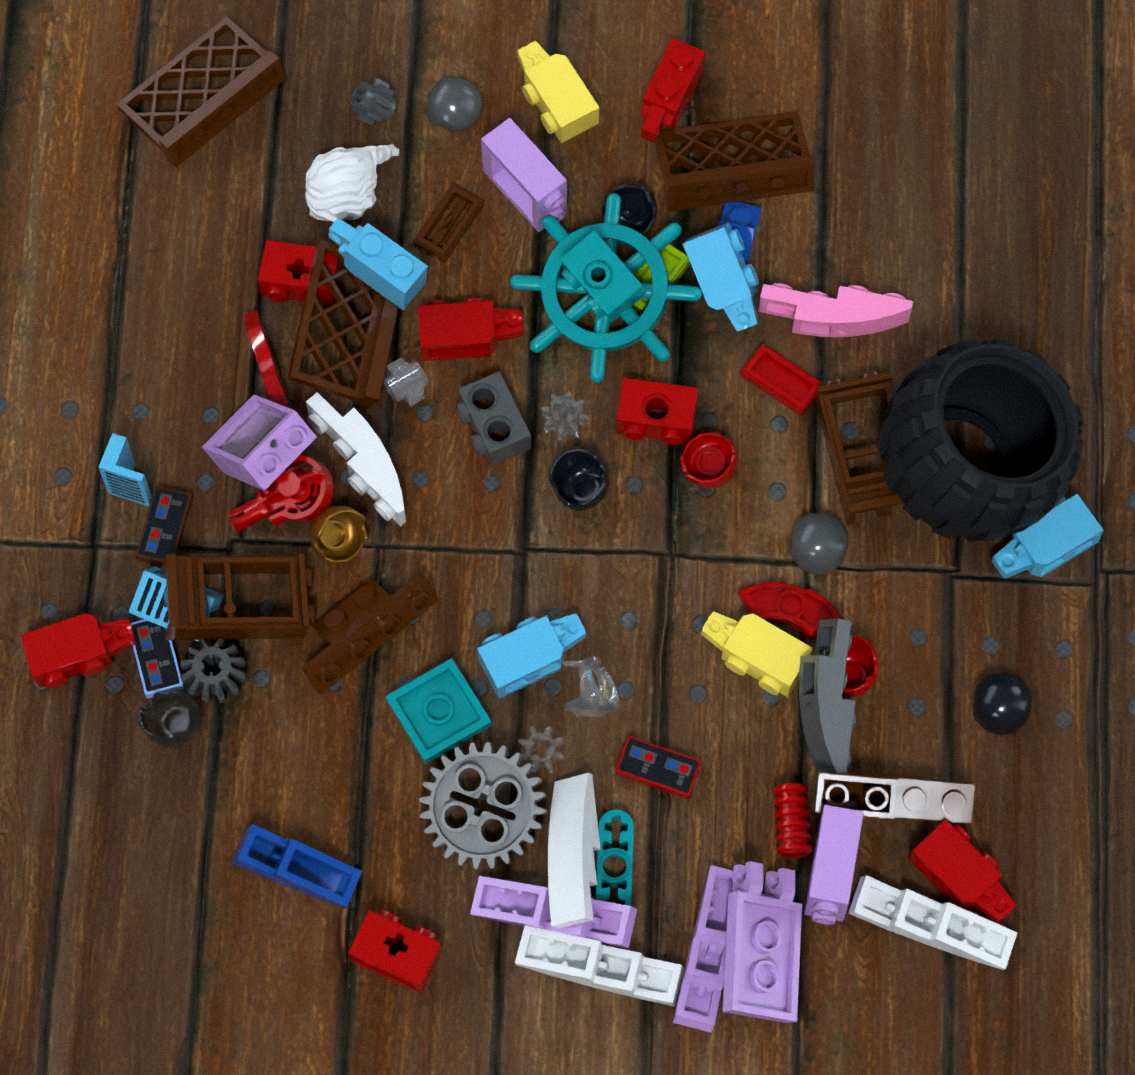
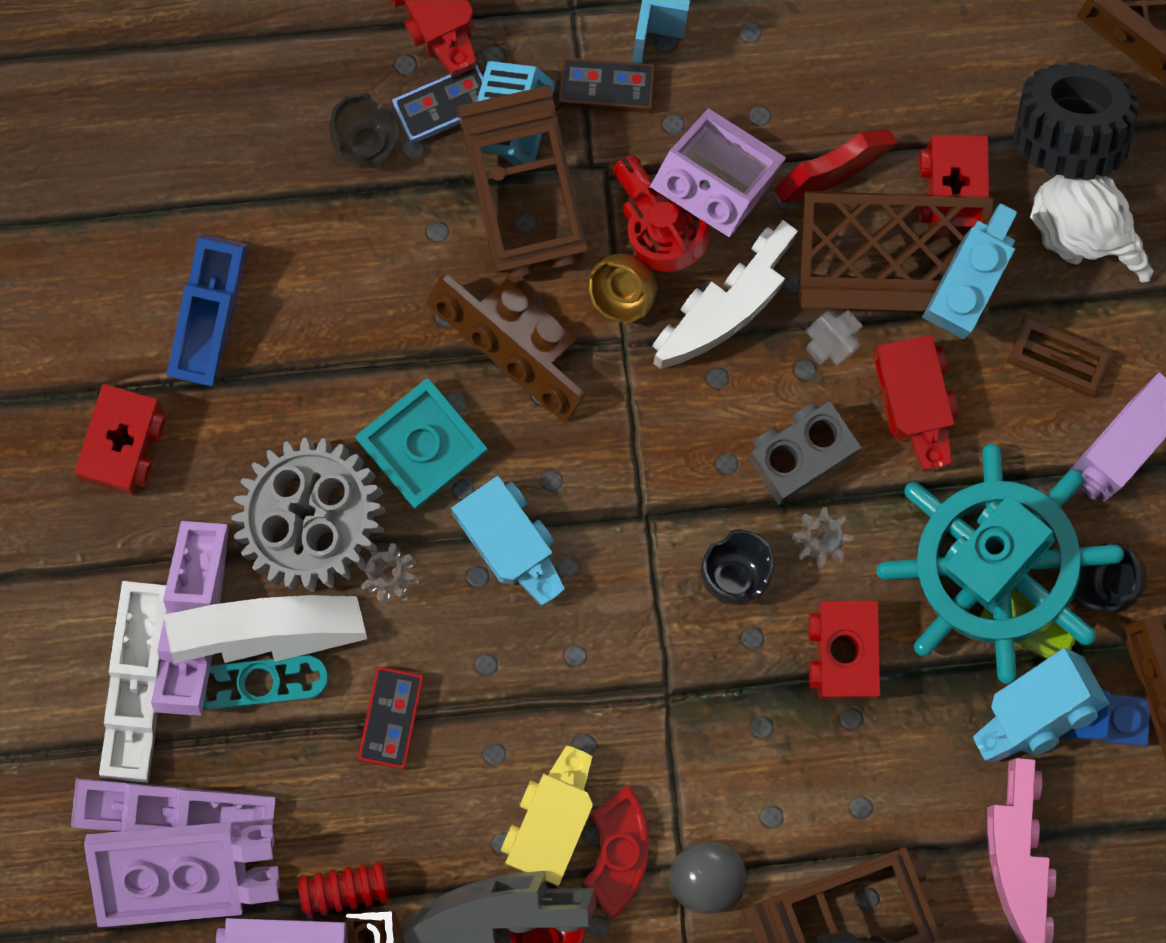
camera: 75 degrees right, 10 degrees up
(229, 666) = (434, 187): dark grey gear -> none
(267, 172) = (1076, 121): none -> black tyre
(593, 701) = (468, 645): clear piece -> none
(709, 460) = (790, 724): red hair -> none
(781, 379) = (919, 802): red tile -> none

